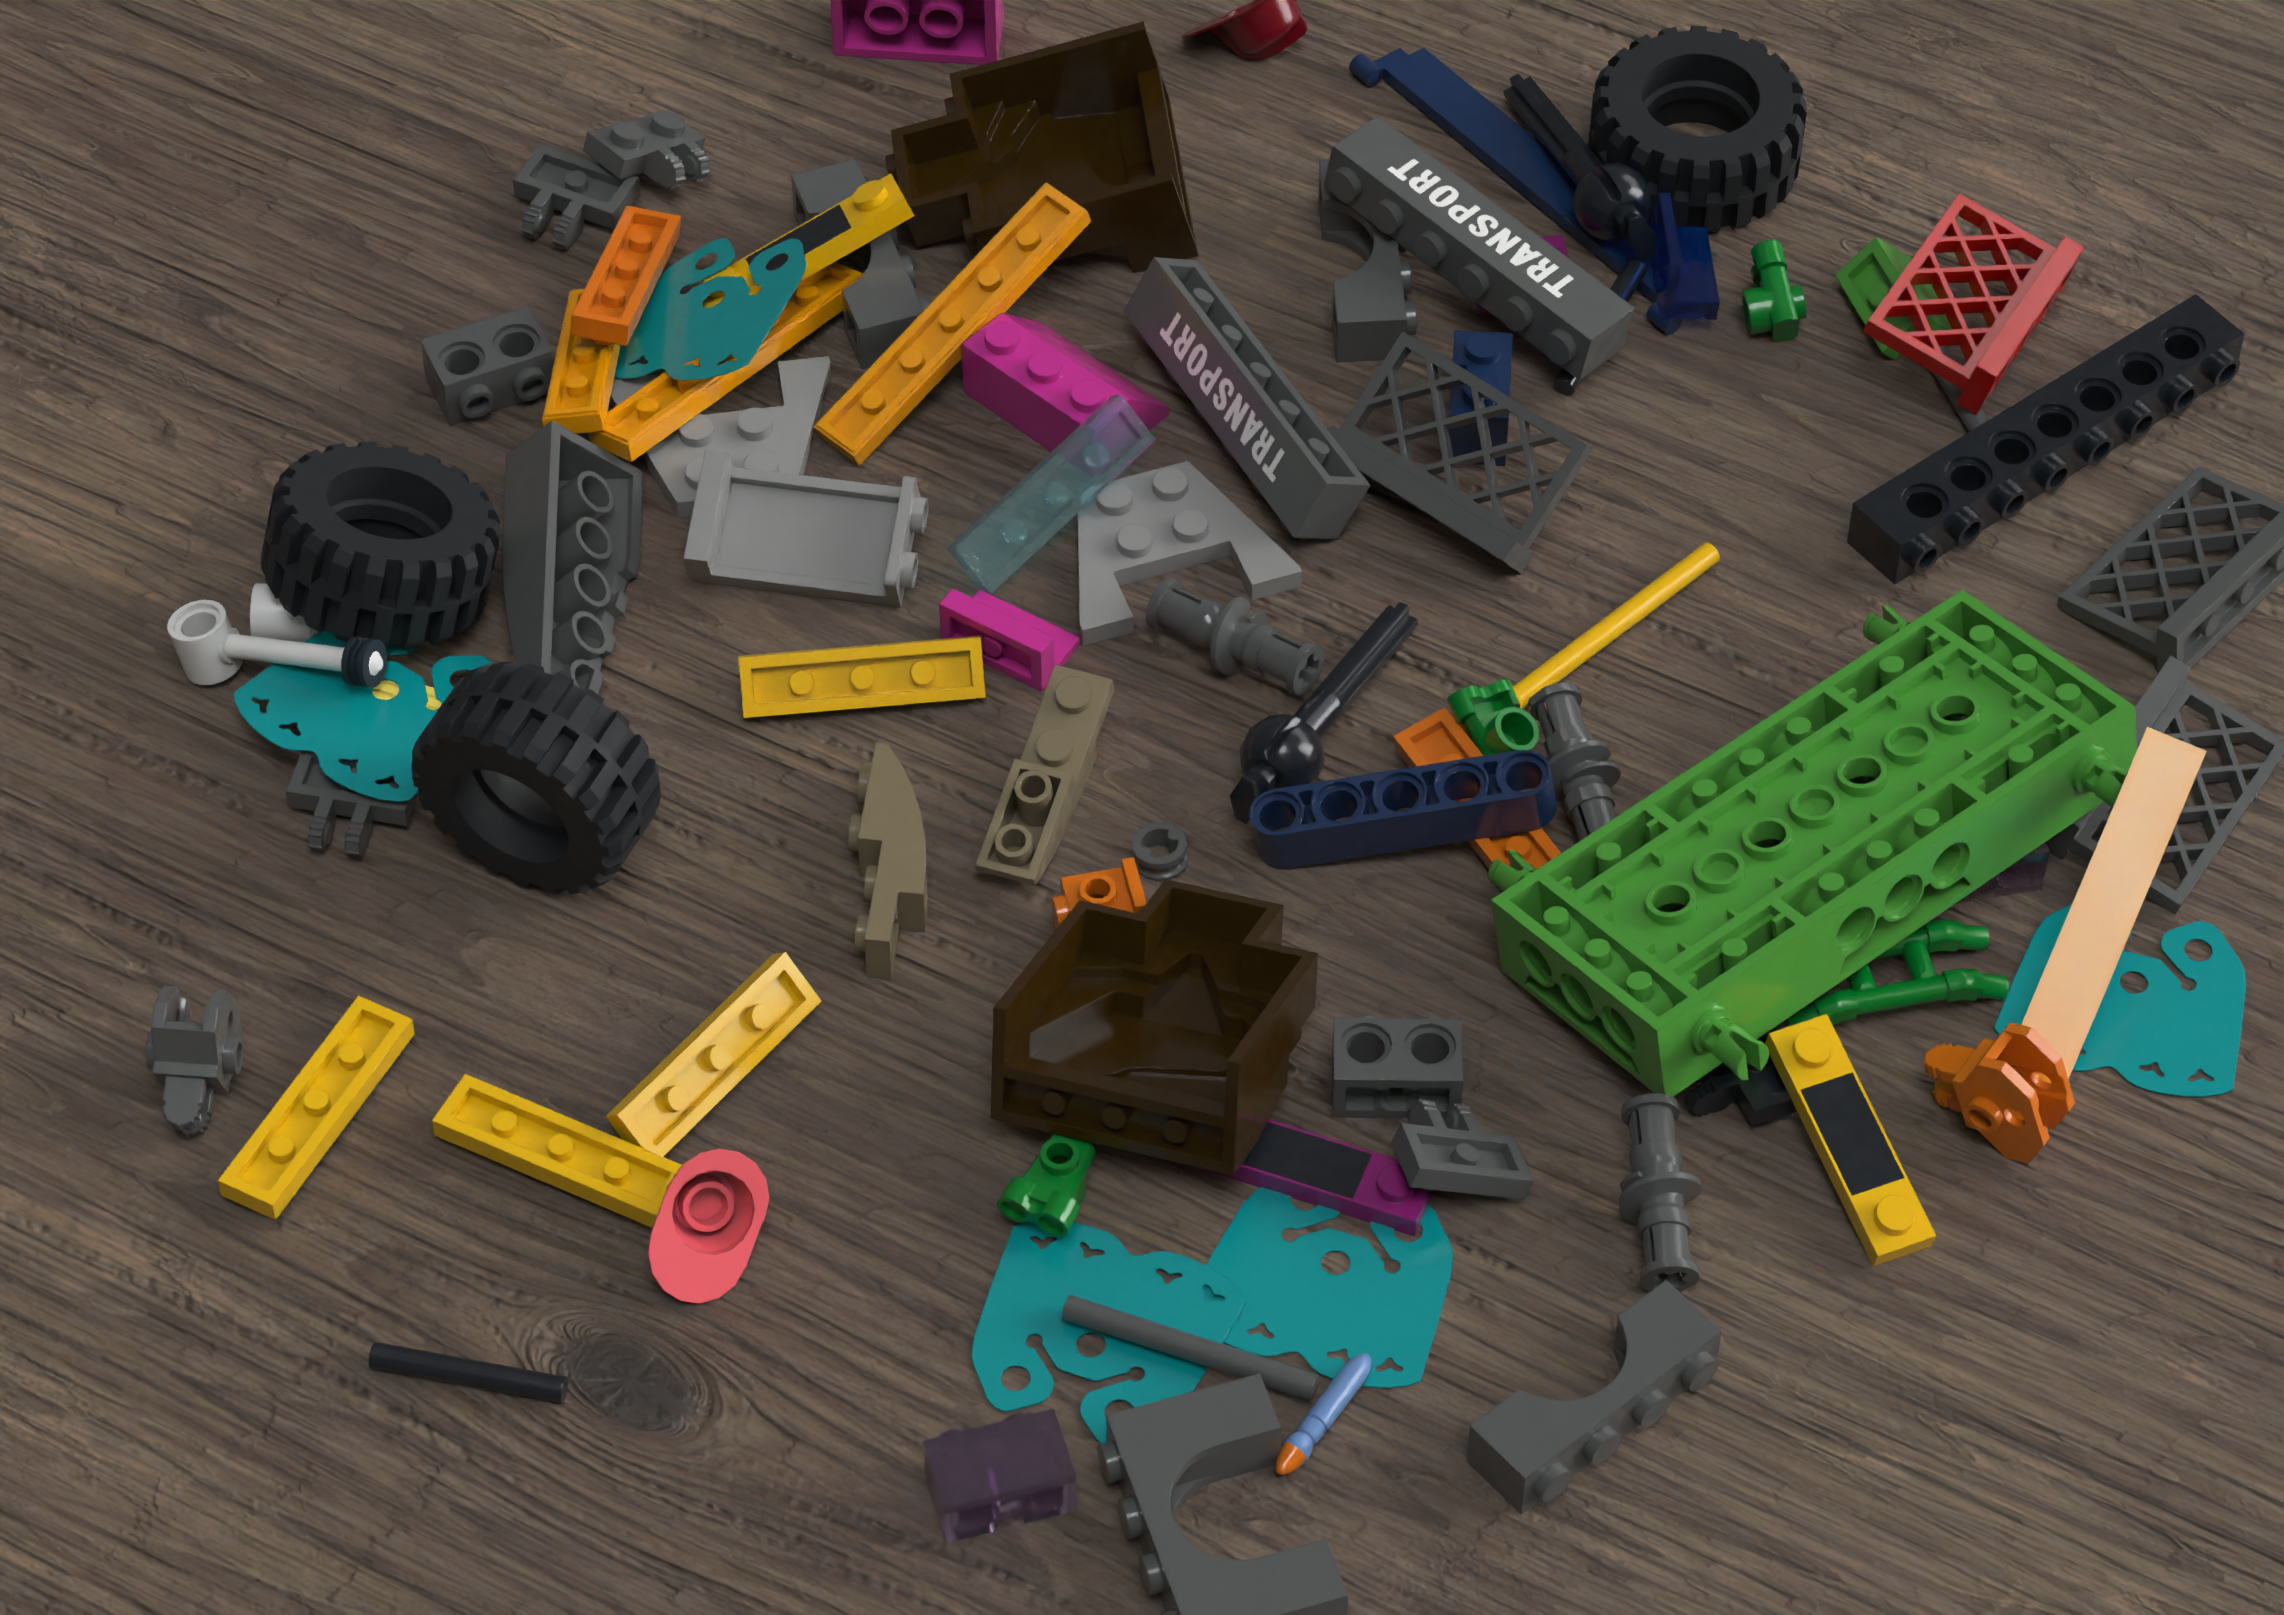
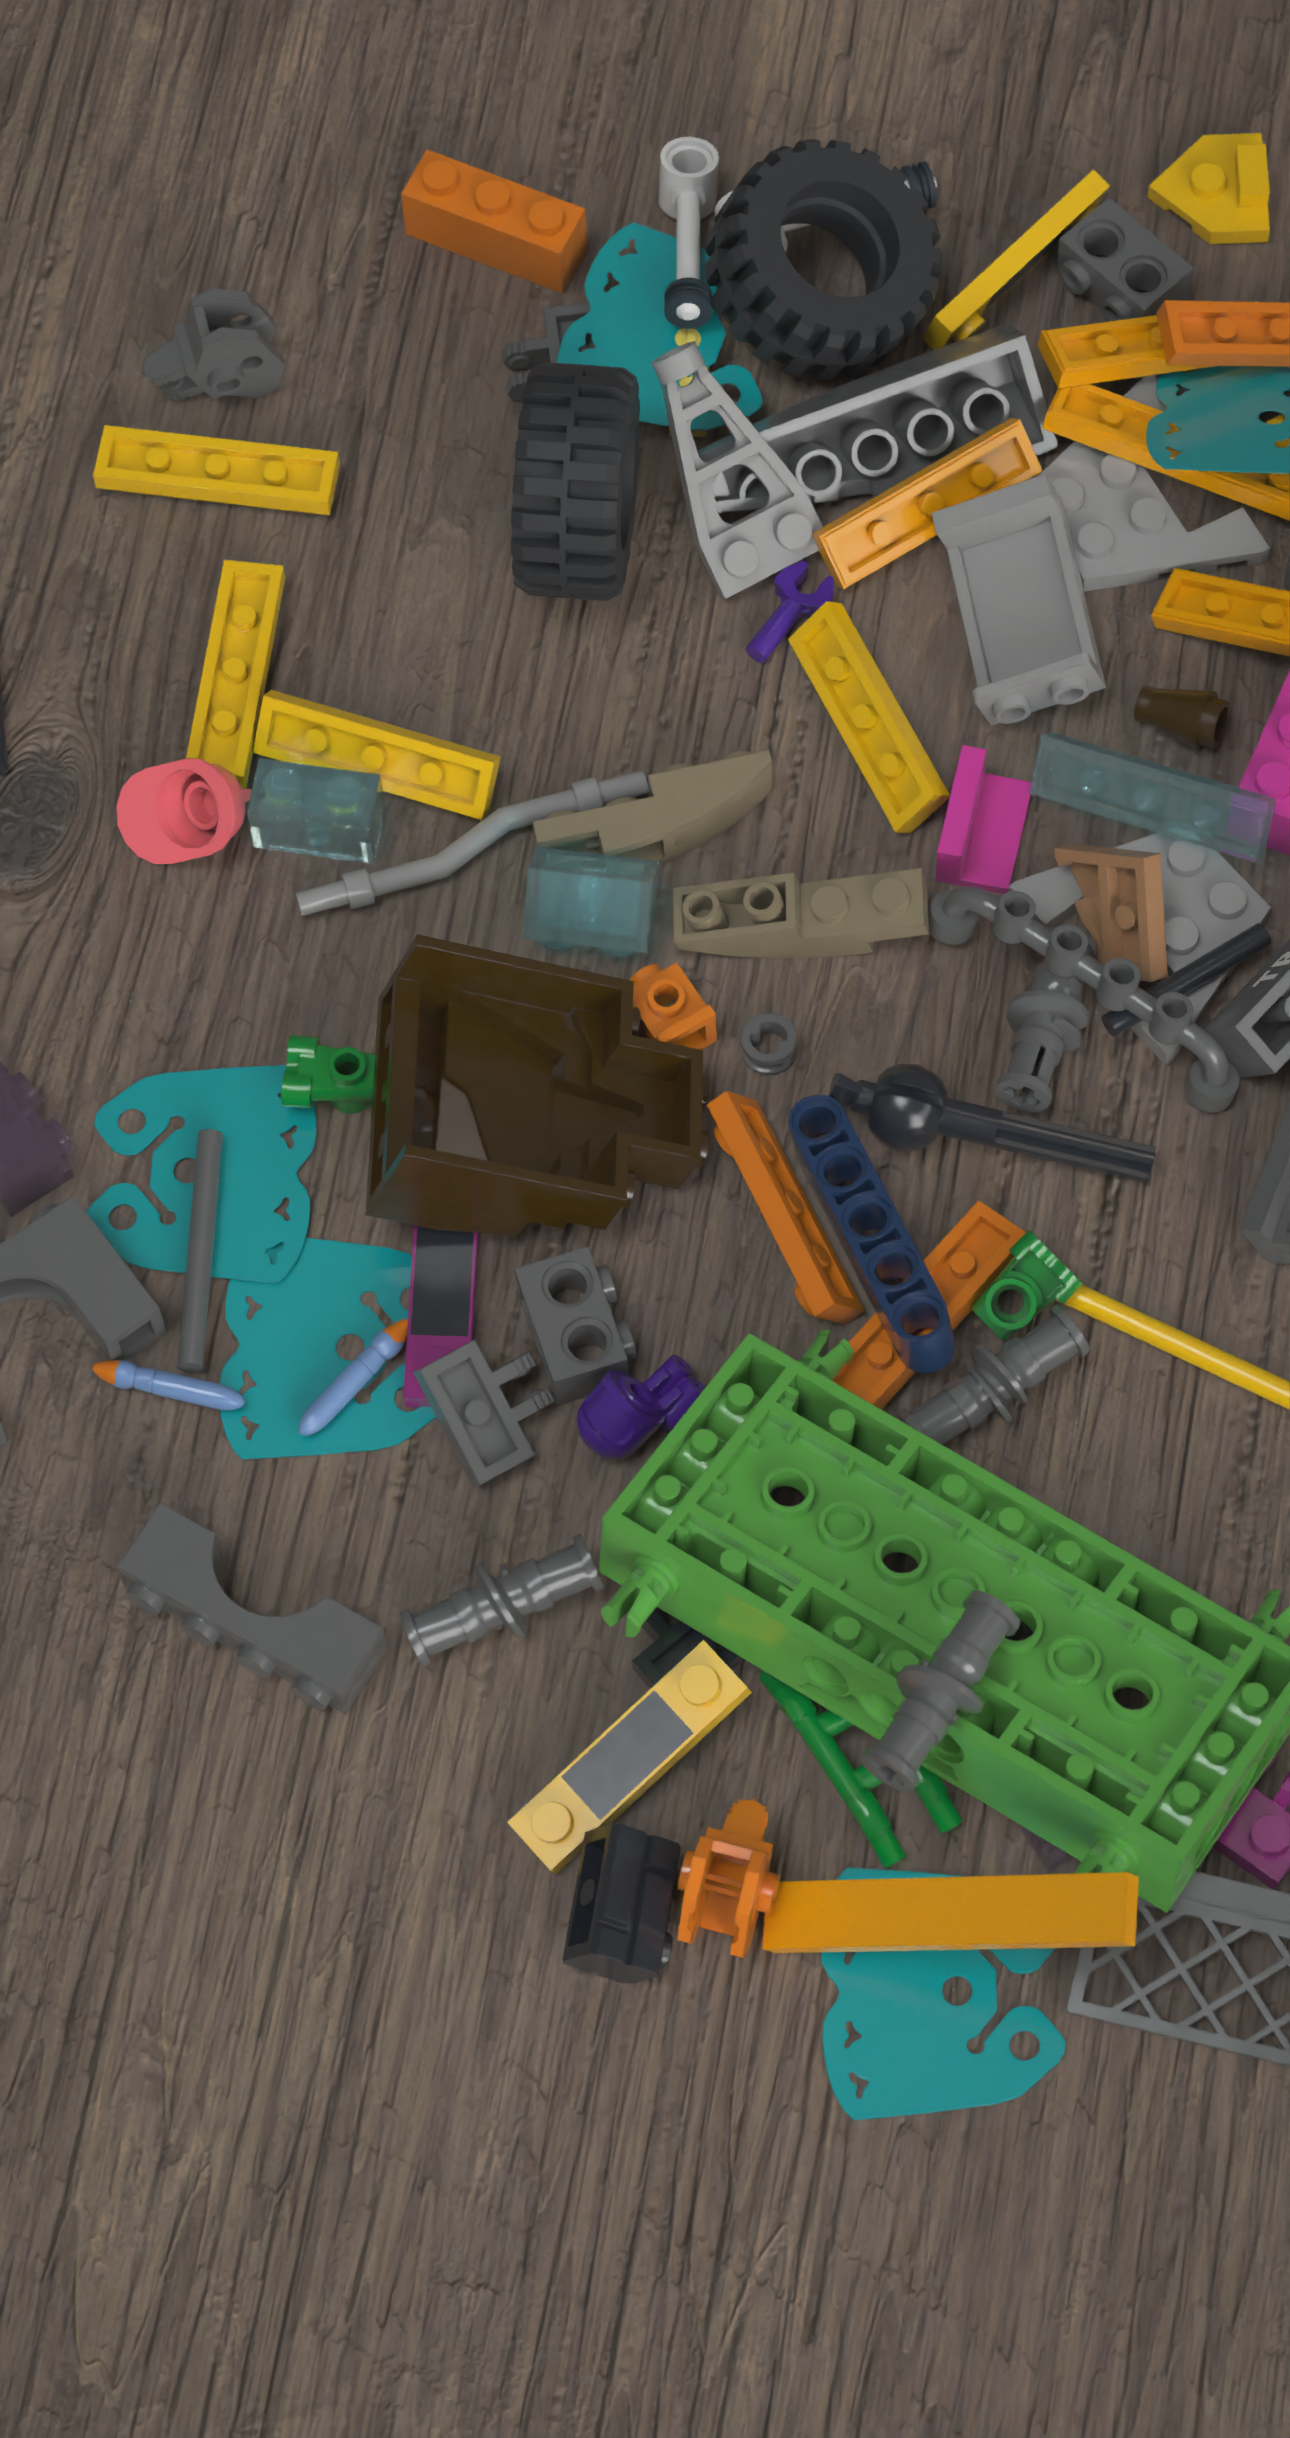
camera: 75 degrees right, 15 degrees up
(164, 801) = (495, 221): none -> orange brick
(427, 416) = (963, 314): none -> yellow plate
(436, 279) = (1219, 188): none -> yellow plate
(631, 674) = (767, 538): none -> light grey plate
(659, 572) = (903, 514): none -> light orange tile
(709, 706) = (792, 608): none -> dark purple bar
(762, 1106) = (316, 810): none -> clear light blue brick
(850, 1111) = (360, 887): none -> light grey bar
(964, 924) = (590, 901): none -> clear light blue brick
(971, 458) = (1186, 715): none -> dark brown cone
(1152, 541) = (1121, 904): none -> medium nougat wing
(1238, 532) = (1196, 973): none -> black bar
(1338, 556) = (954, 919): none -> dark grey bar
(1354, 1226) = (353, 1378): none -> medium blue piece
(1431, 874) = (749, 1139): none -> orange plate
(1502, 1041) = (628, 1412): none -> dark purple piece
(1932, 809) = (938, 1689): none -> dark grey piece
(1994, 1180) = (623, 1904): none -> black brick

